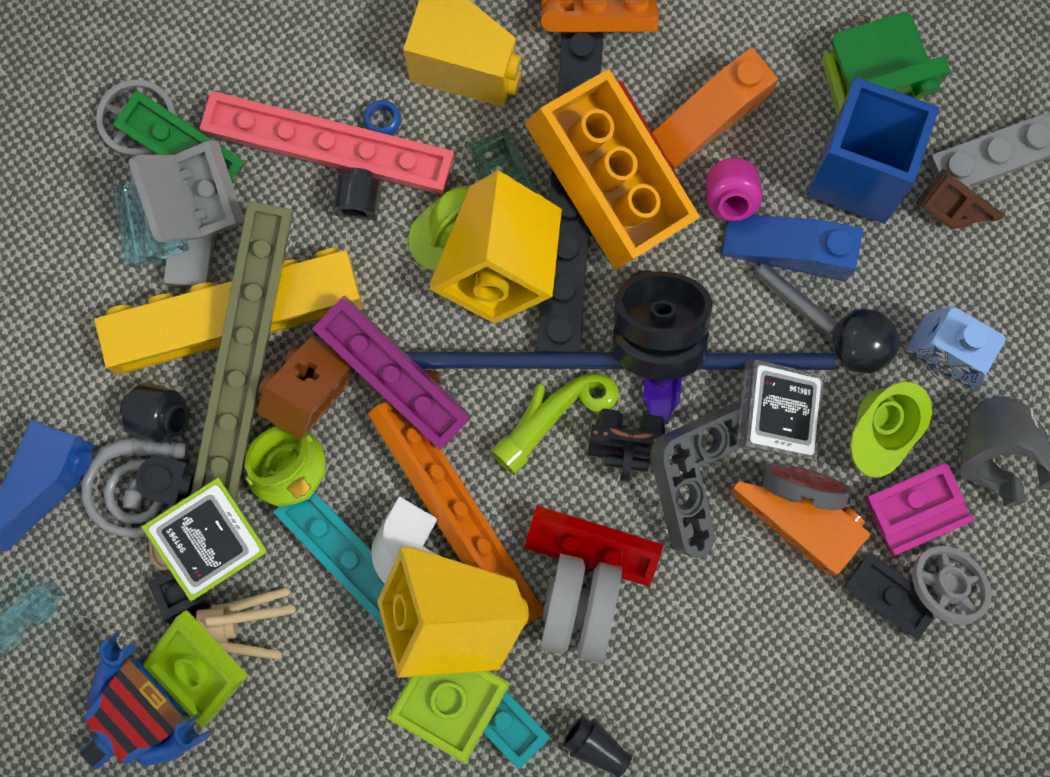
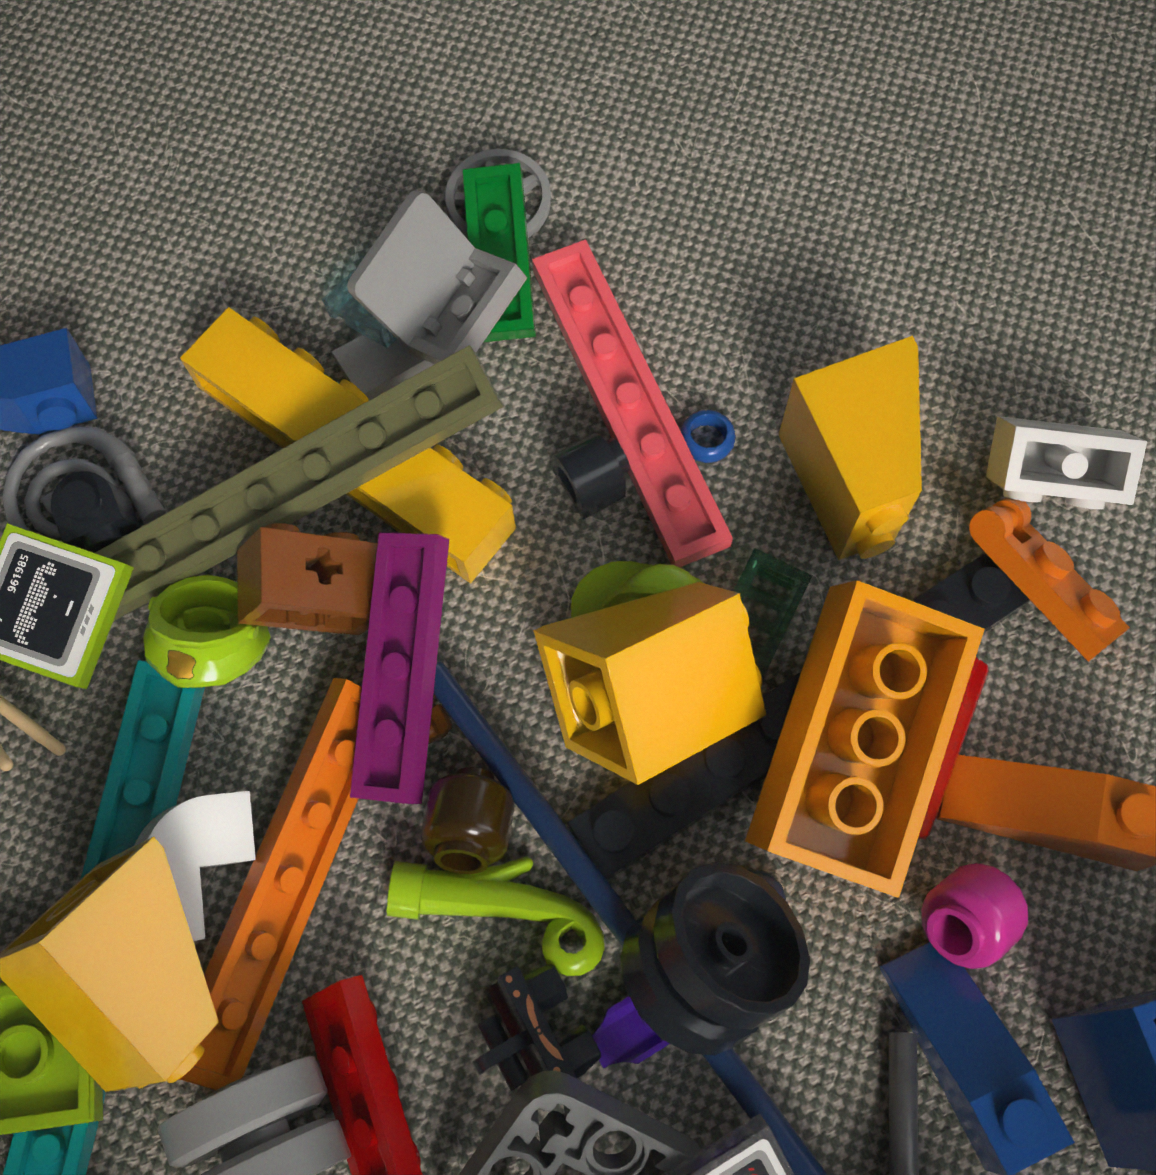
camera: 55 degrees right, 10 degrees down
(154, 413) = (169, 448): black head -> none
(498, 398) = (467, 821): none -> dark brown head

